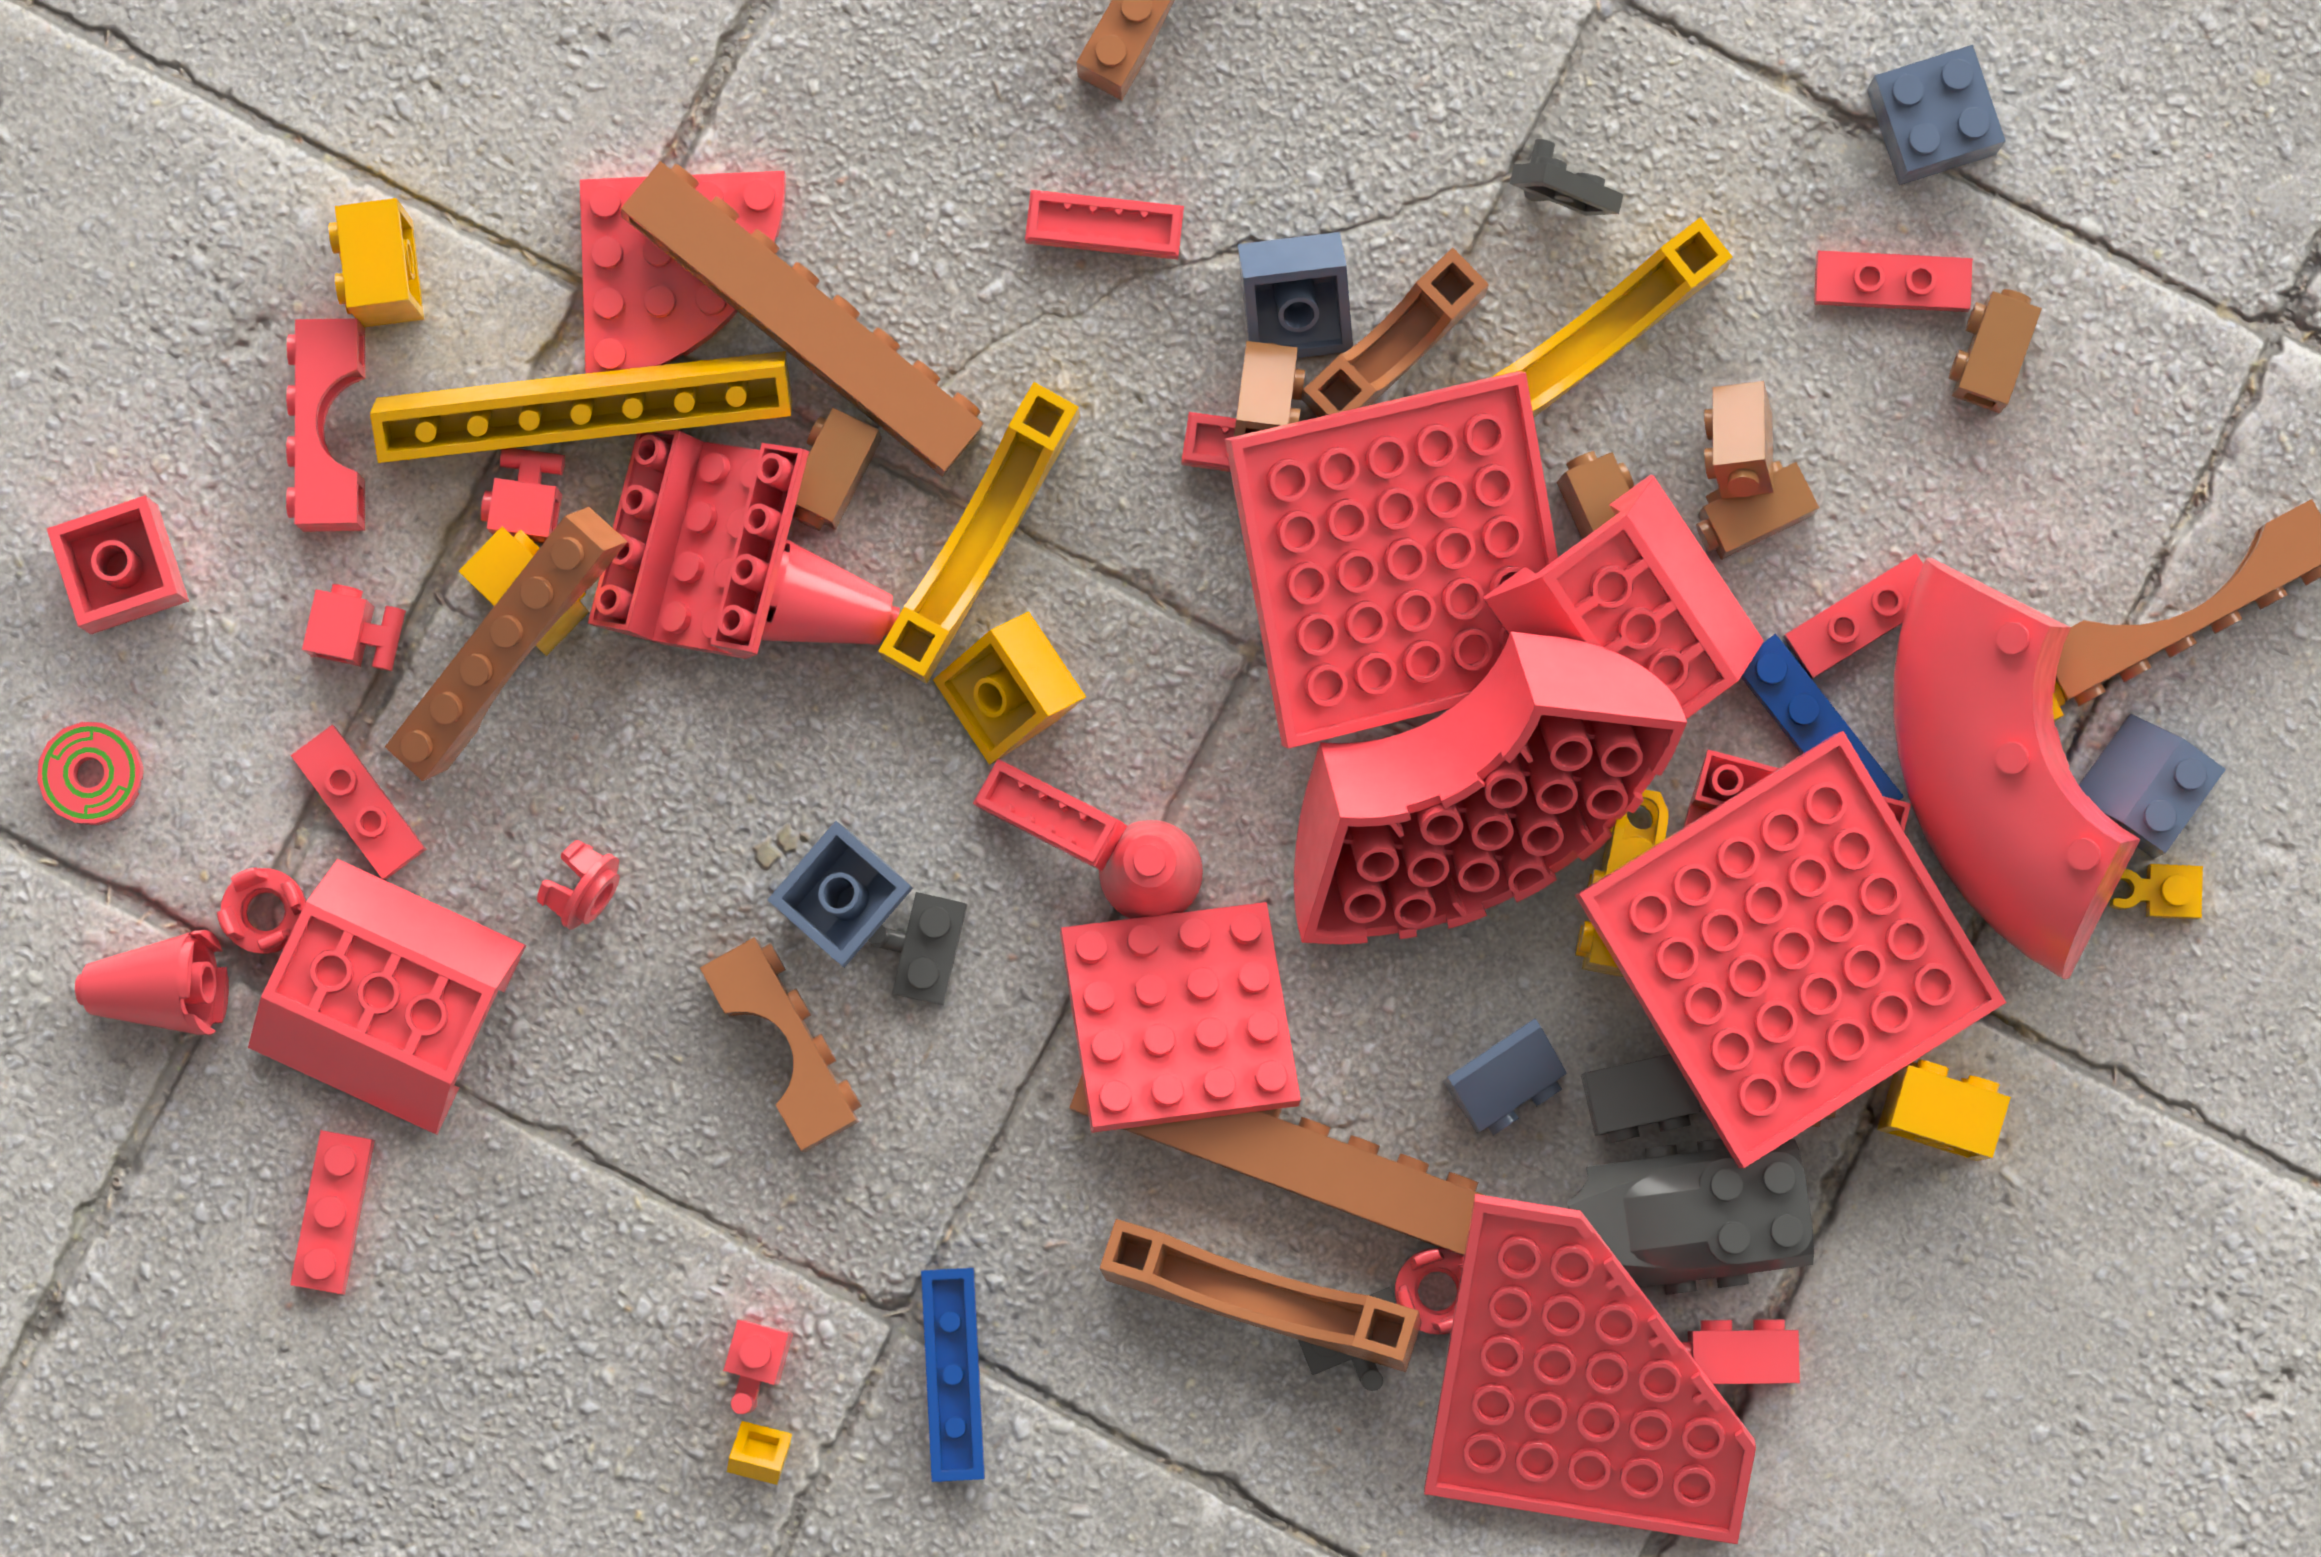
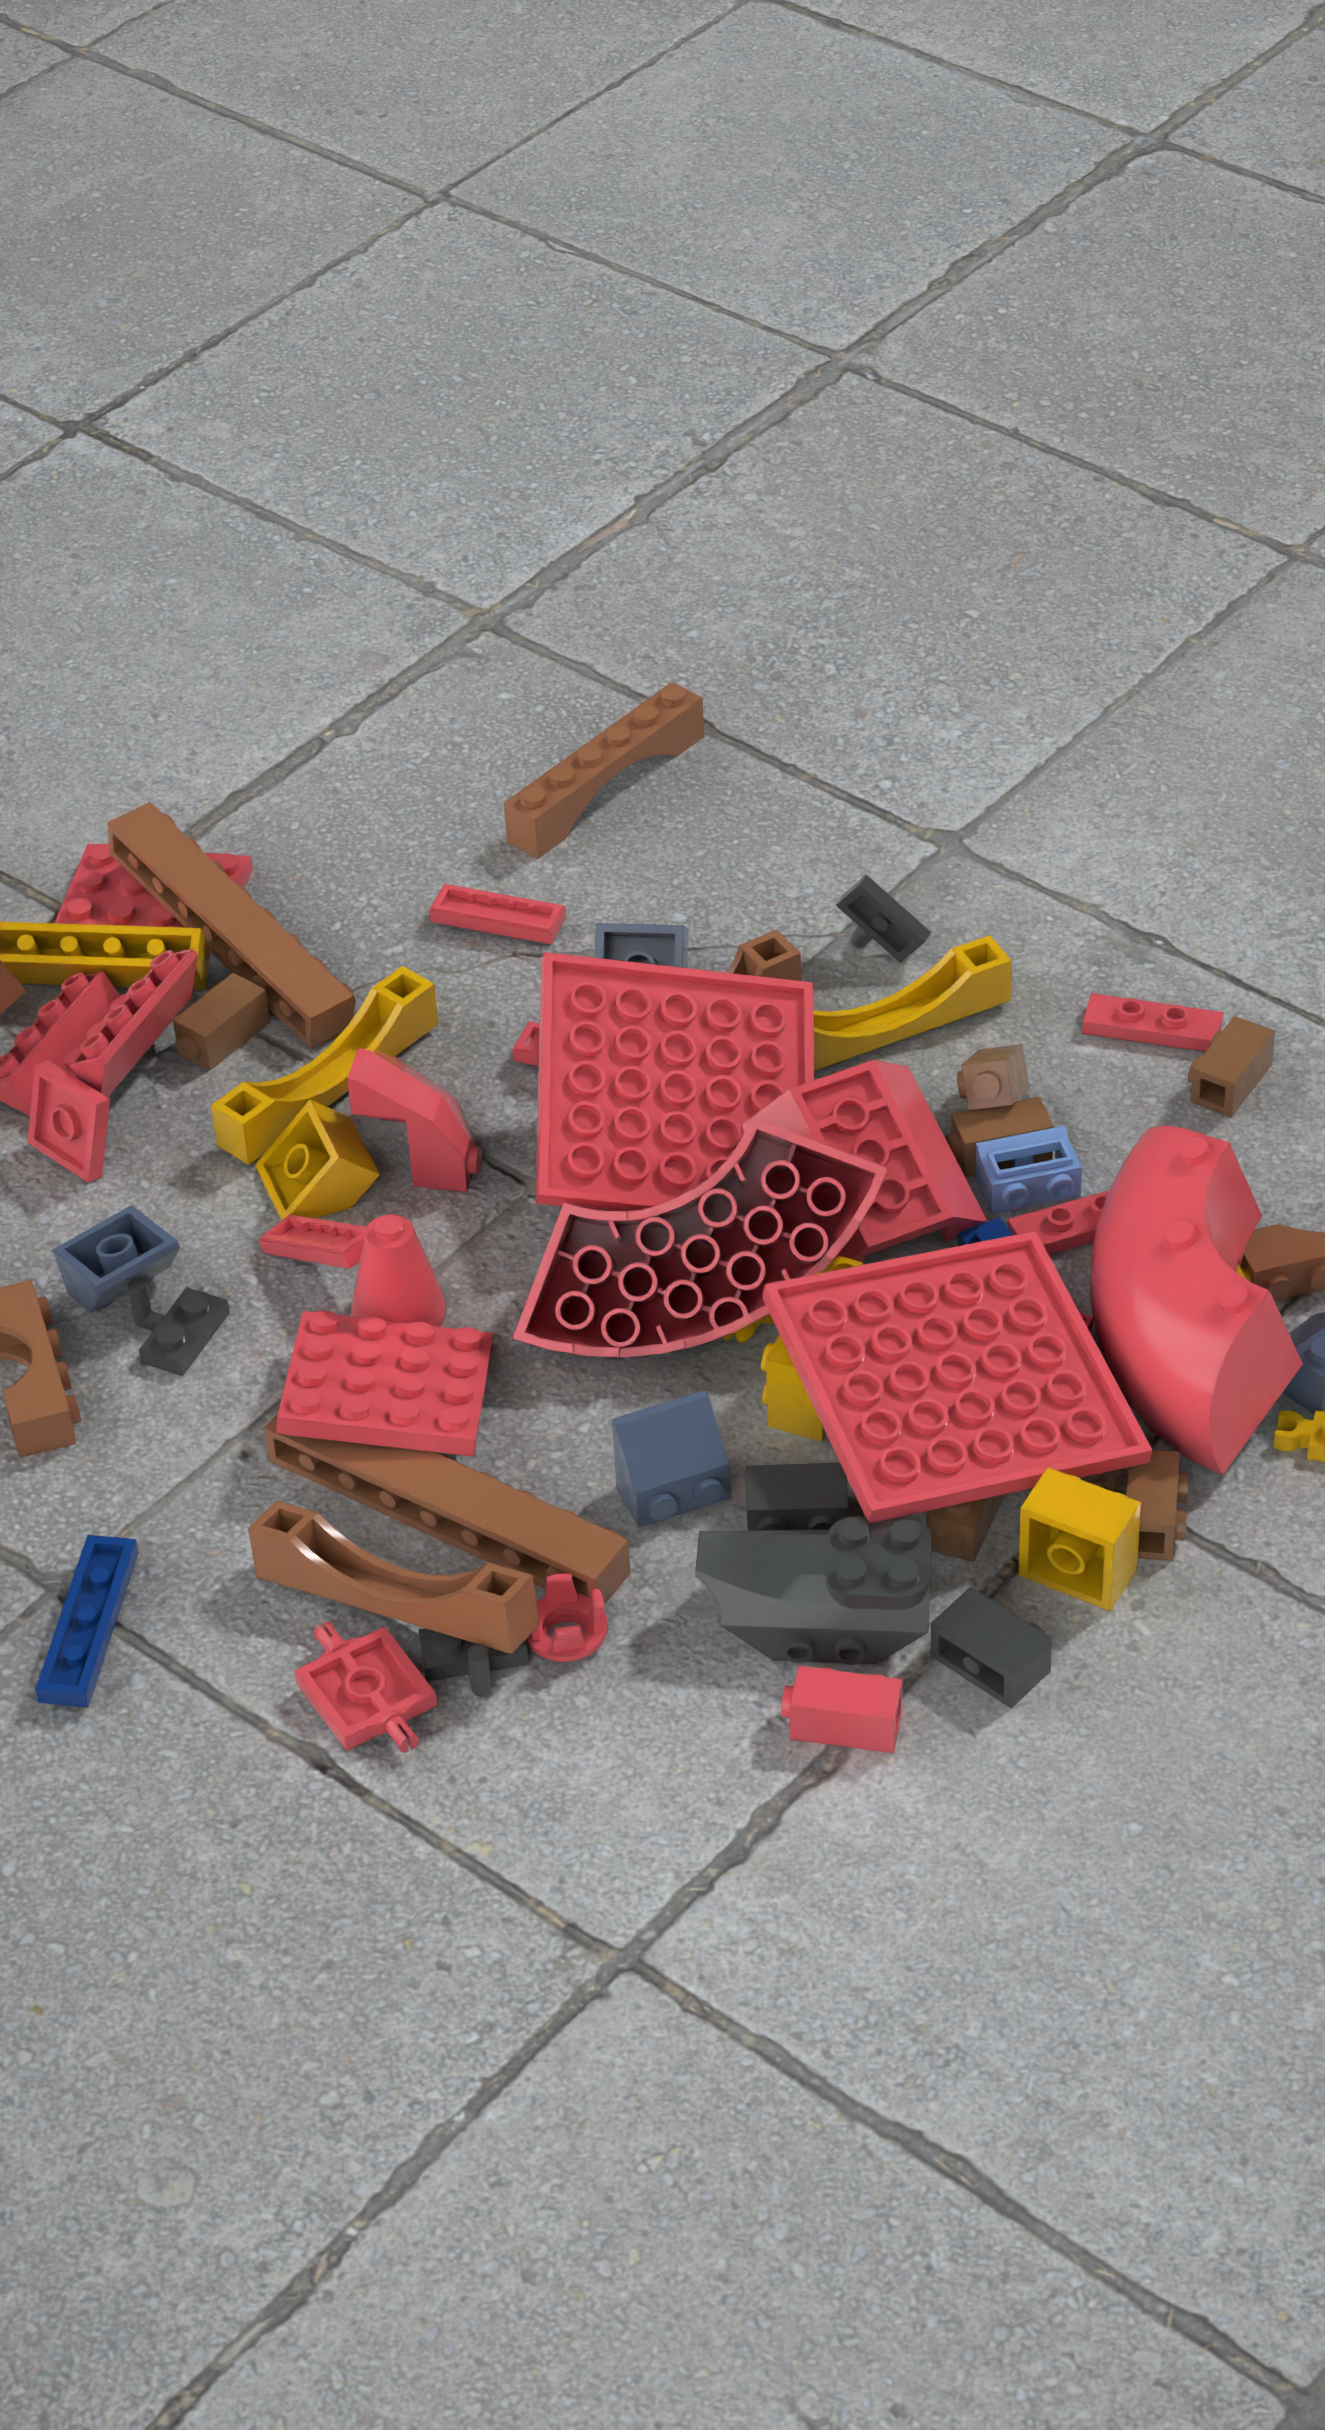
camera: 10 degrees right, 40 degrees down
(717, 685) = (68, 1121): none -> coral plate
(825, 603) = (166, 1084): coral cone -> none
(1107, 609) = (437, 1131): none -> coral brick
(1259, 1412) = (365, 1688): none -> coral plate
(1576, 1388) = (673, 1688): coral plate -> none
(1789, 593) = (1027, 1182): none -> light blue window
(1872, 1249) = (991, 1647): none -> dark grey brick
(1936, 115) = (1207, 922): sand blue brick -> none
(2004, 1037) = (1159, 1490): none -> medium nougat brick

